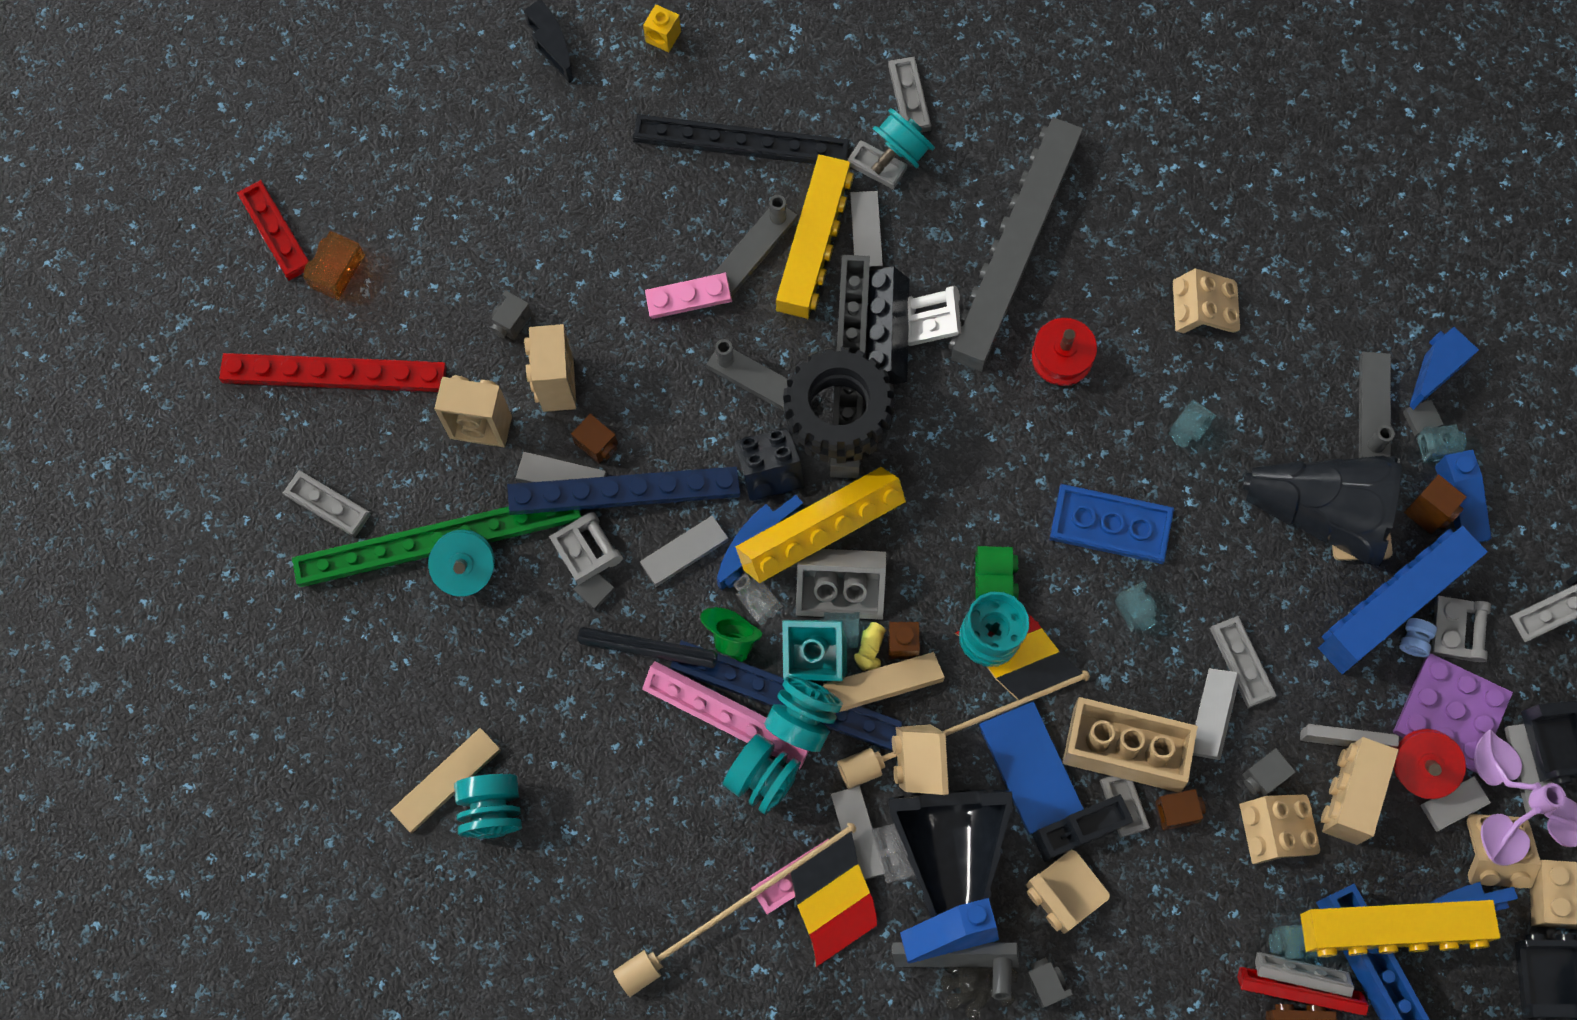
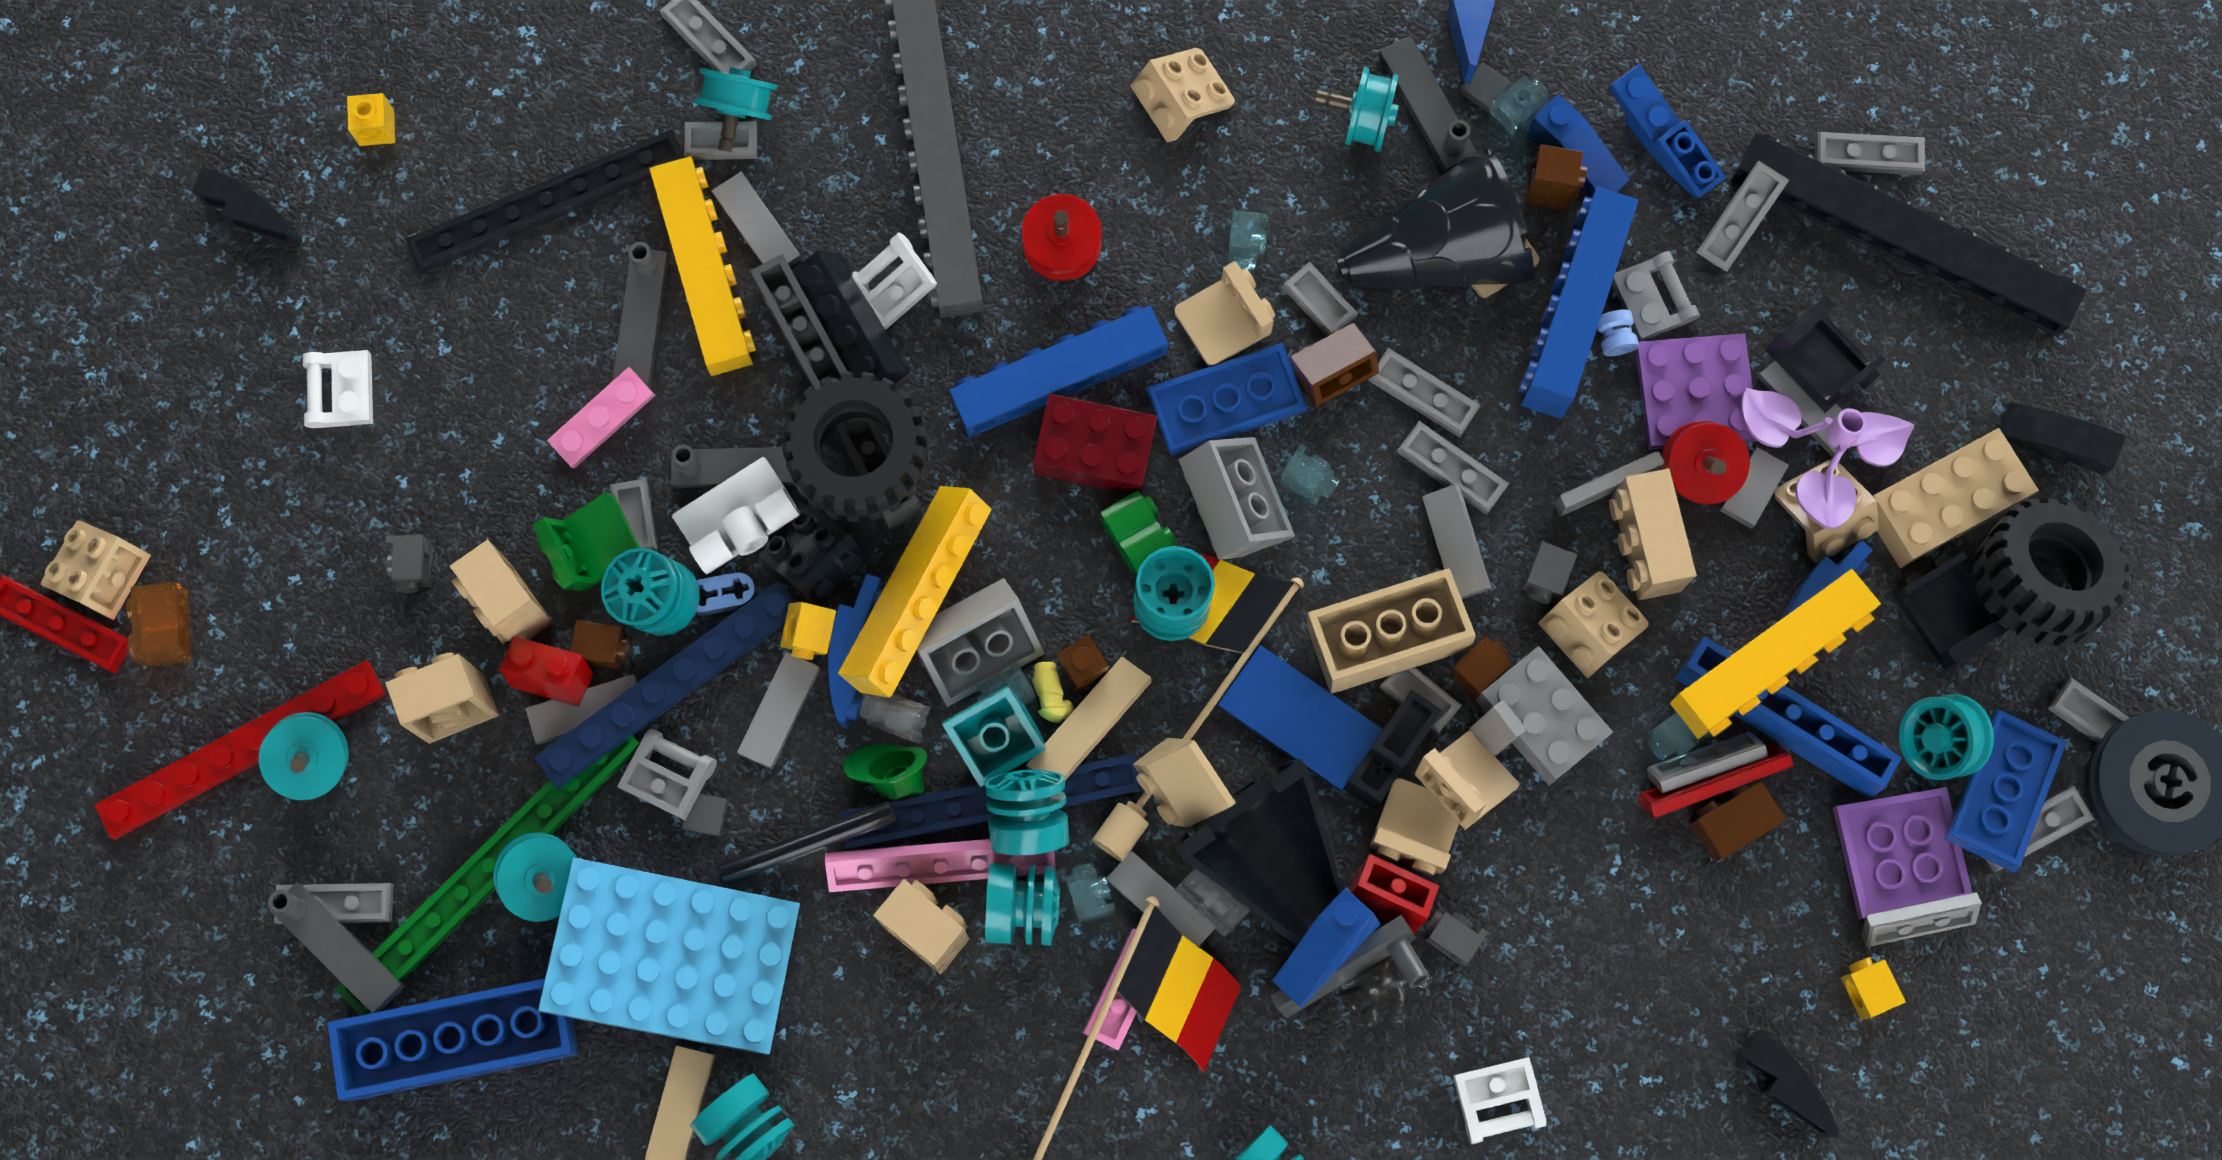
camera: 35 degrees left, 5 degrees up
(308, 529) = (335, 947): none -> dark grey piece
(317, 209) = (95, 569): none -> tan bracket
(343, 634) = (447, 1041): none -> blue brick
(366, 398) = (303, 756): none -> teal wheel
(511, 666) = (669, 957): none -> medium azure plate
(543, 187) = (350, 389): none -> white plate
(550, 435) = (546, 671): none -> red brick
(628, 370) = (585, 542): none -> green bracket
(648, 423) = (668, 593): none -> teal wheel
(669, 372) = (637, 508): none -> light grey tile
(688, 746) = (922, 926): none -> tan brick
(696, 447) = (726, 602): none -> medium blue beam
(734, 508) = (807, 630): none -> yellow brick
(735, 408) = (736, 515): none -> white panel
(812, 797) = (1089, 893): none -> clear light blue brick
(1002, 500) = (1094, 444): none -> dark red brick
(1008, 438) = (1058, 370): none -> blue brick
(1022, 924) = (1393, 892): none -> red brick
(1078, 592) = (1236, 497): none -> light grey slope
(1122, 879) = (1466, 779): none -> tan bracket
(1145, 467) = (1226, 316): none -> tan bracket
(1164, 858) = (1498, 728): none -> light grey tile
(1201, 542) = (1335, 364): none -> brick
(1204, 870) = (1556, 716): none -> light grey brick
(1217, 495) = (1319, 299): none -> light grey tile
(1253, 599) = (1424, 393): none -> light grey tile
(1329, 385) = (1368, 110): none -> teal wheel
(1534, 521) = (1663, 135): none -> blue slope

